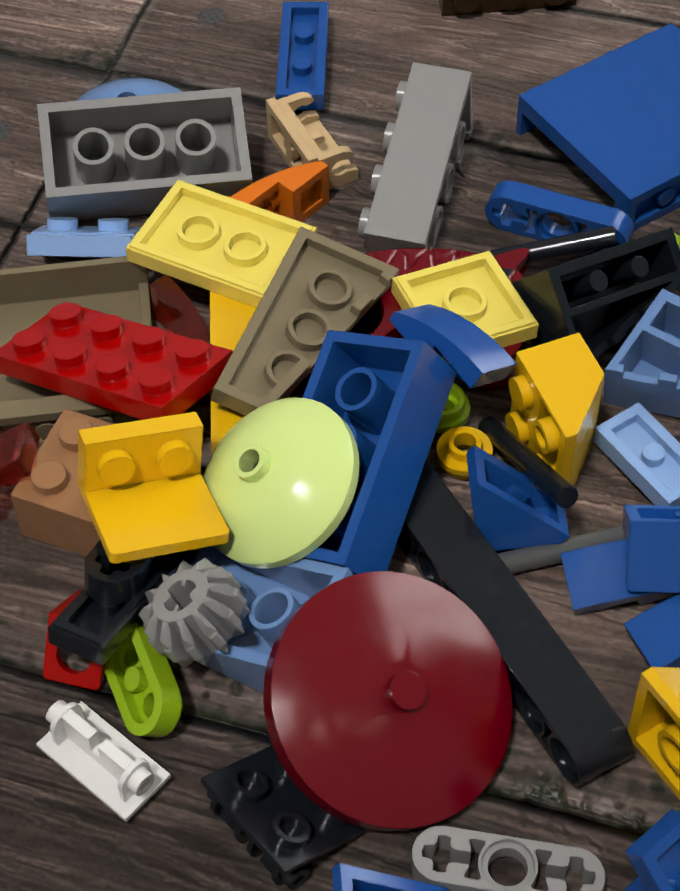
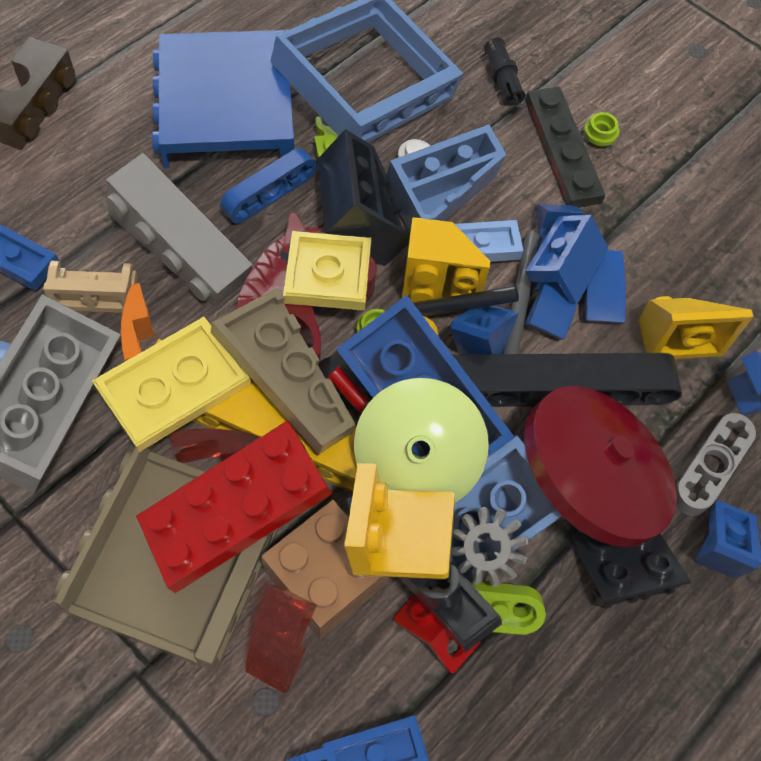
camera: 70 degrees left, 10 degrees up
(66, 238) = (84, 475): light blue plate -> none
(101, 758) = (542, 660): white hinge -> none
(463, 344) = (367, 288): blue slope -> none
(565, 245) = (292, 203): black bar -> none

